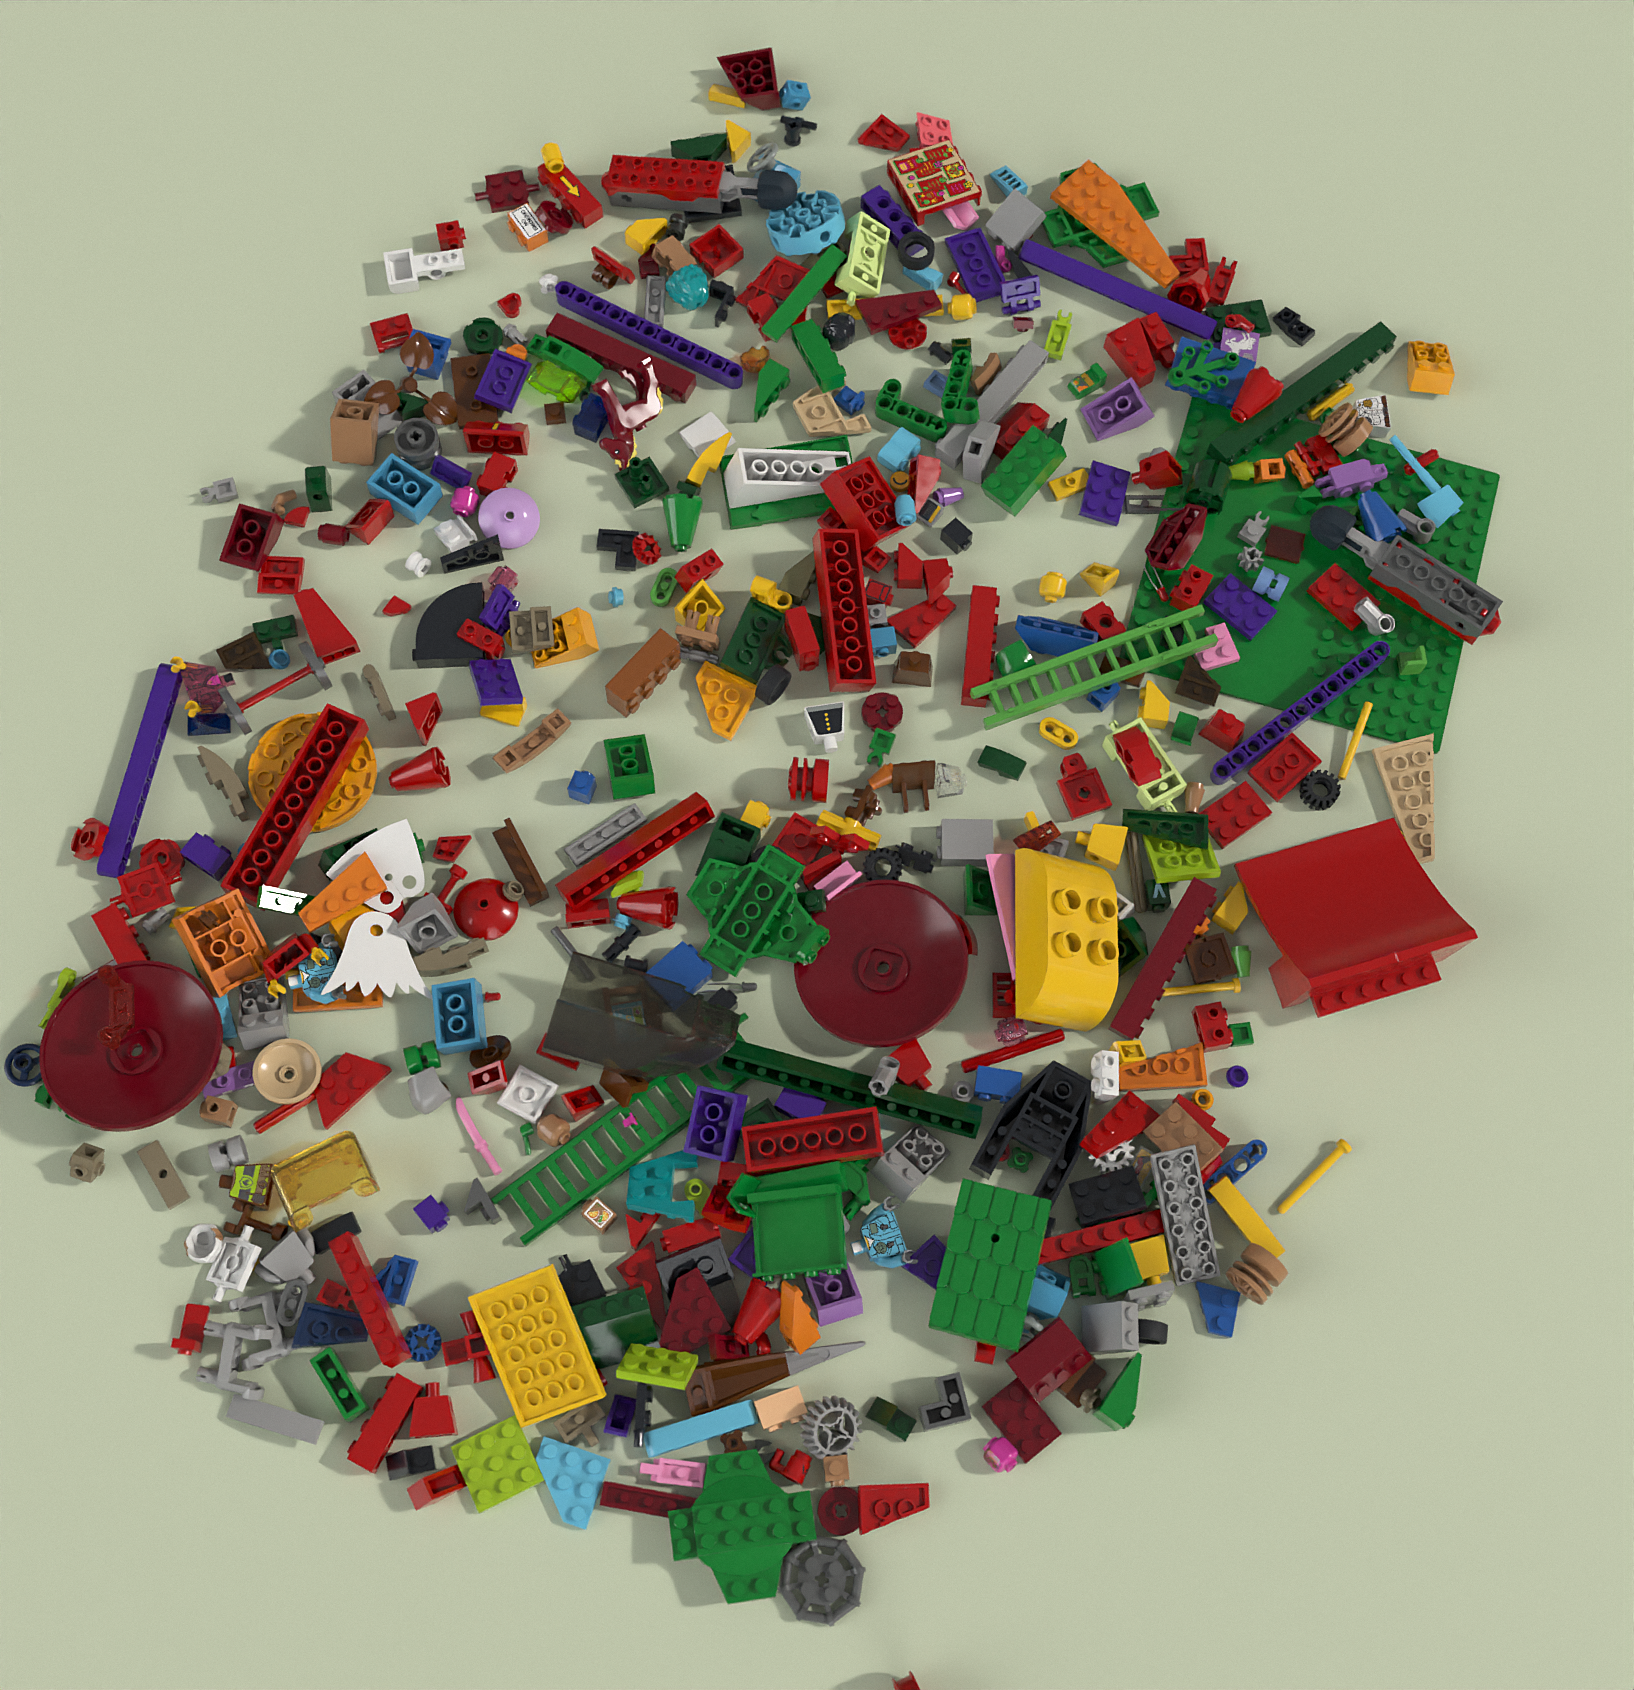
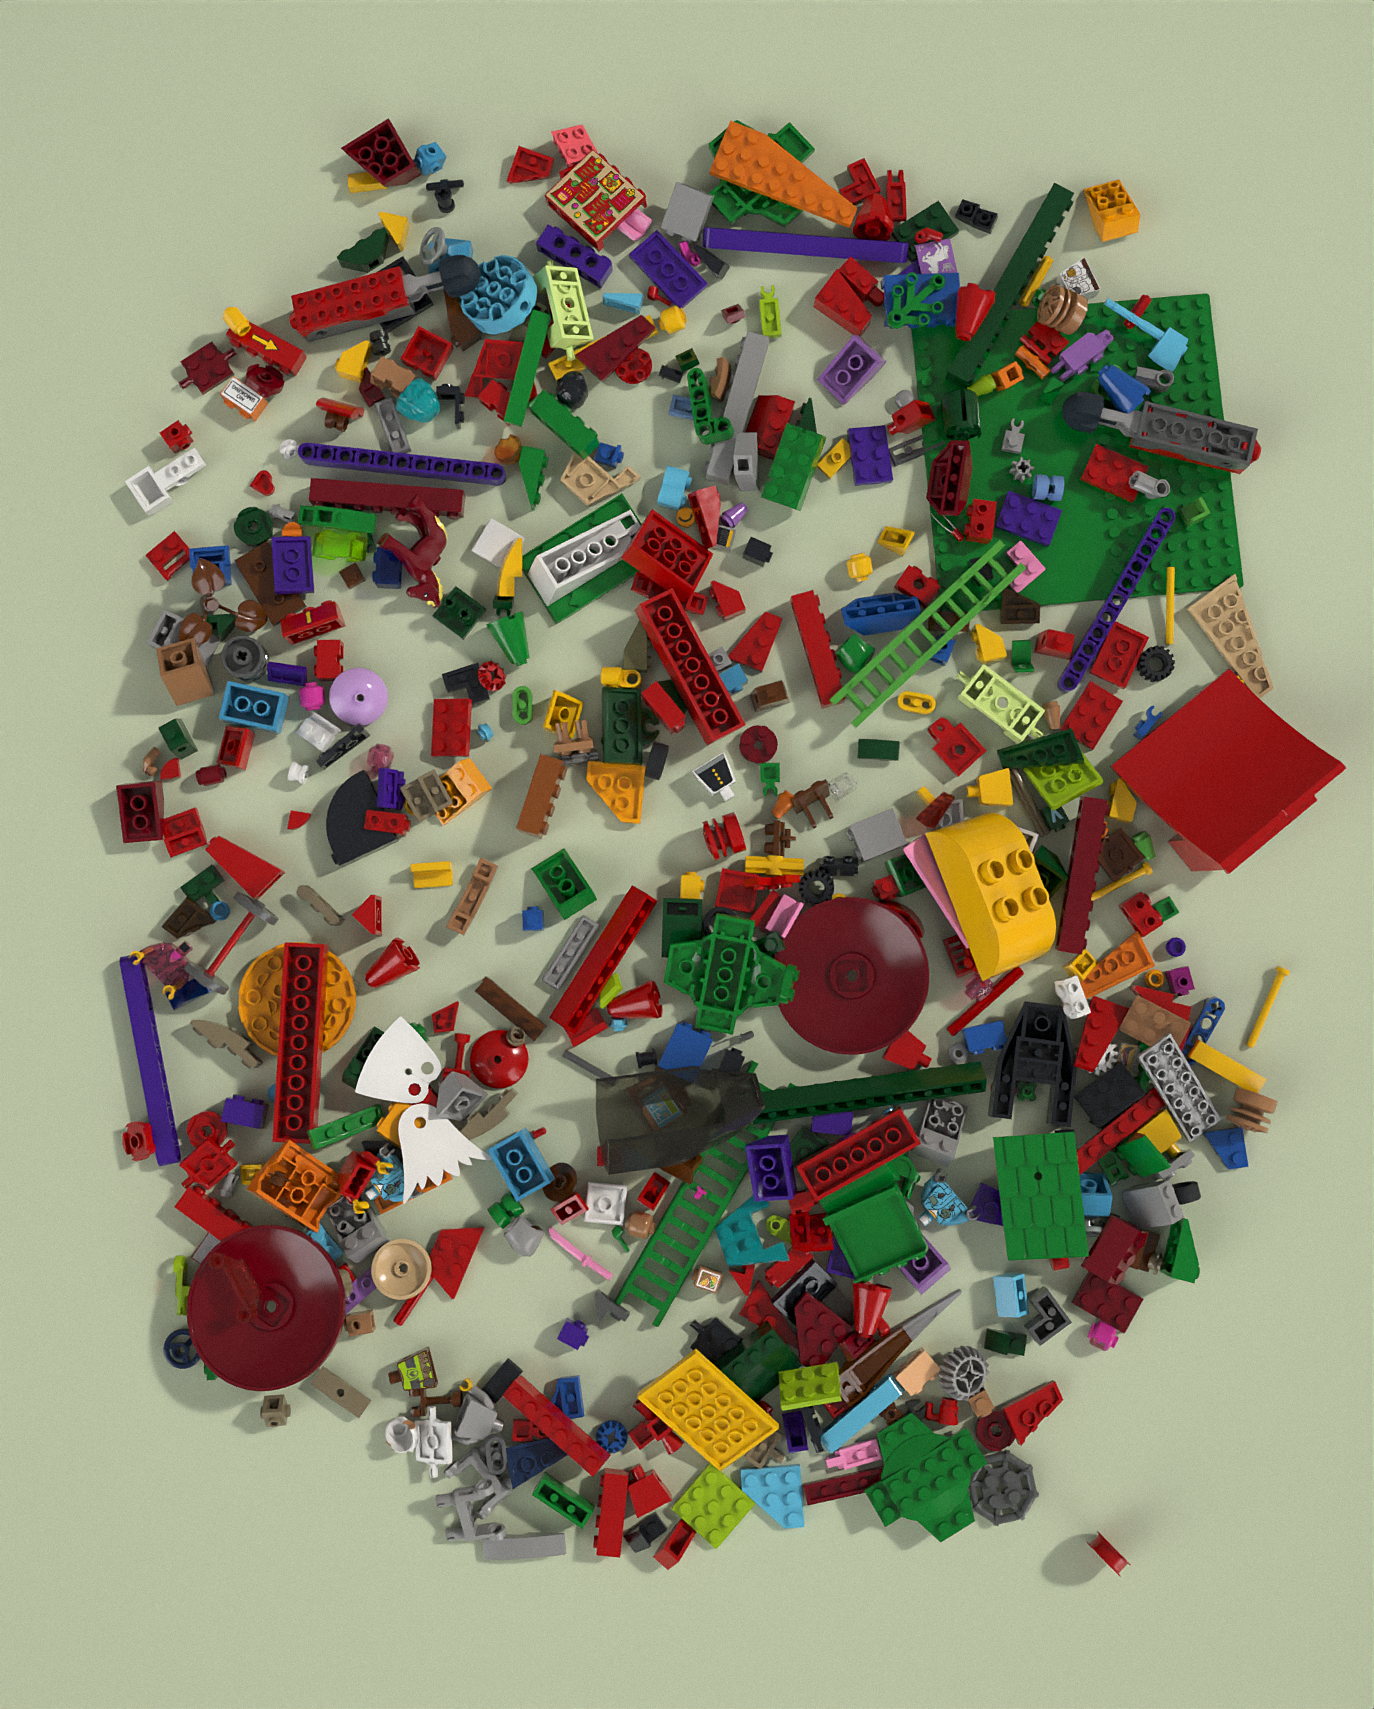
camera: 20 degrees left, 15 degrees up
(192, 1330) = (425, 1505): red bracket -> none
(223, 490) = (93, 773): light grey plate -> none
(225, 1154) = (392, 1351): light grey wheel -> none
(321, 1175) = (474, 1346): clear yellow windscreen -> none
(347, 891) = (381, 1099): orange wing -> none
(495, 682) = (418, 858): dark purple plate -> none
(585, 580) = (451, 727): none -> red plate
(621, 943) = (625, 1043): black pin -> none
(677, 1409) = (836, 1408): none -> red tile
(702, 567) = (547, 680): red brick -> none
(738, 1195) = (815, 1219): green bracket -> none
(759, 244) = (462, 329): none -> reddish brown slope
(795, 1321) = (903, 1301): orange slope -> none
(878, 593) = (712, 636): red brick -> none
(884, 1076) = (894, 1075): light grey piece -> none
(905, 510) = (704, 548): medium azure brick -> none
(912, 414) = (670, 446): green beam -> none
(915, 1367) = (1010, 1295): none -> medium azure brick
(918, 238) = (607, 269): black tyre -> none
(936, 577) = (756, 600): red slope -> none
(953, 894) = (885, 888): none -> red brick
(1003, 185) = (669, 181): medium azure slope -> none
(1020, 289) = (719, 282): plate -> none
(1087, 382) = (814, 350): green leg -> none
(1137, 756) = (996, 705): red brick -> none
(1228, 1110) = (1179, 981): none -> magenta brick
(1284, 544) = (1044, 441): clear red piece -> none
(1294, 840) = (1144, 726): none -> blue plate

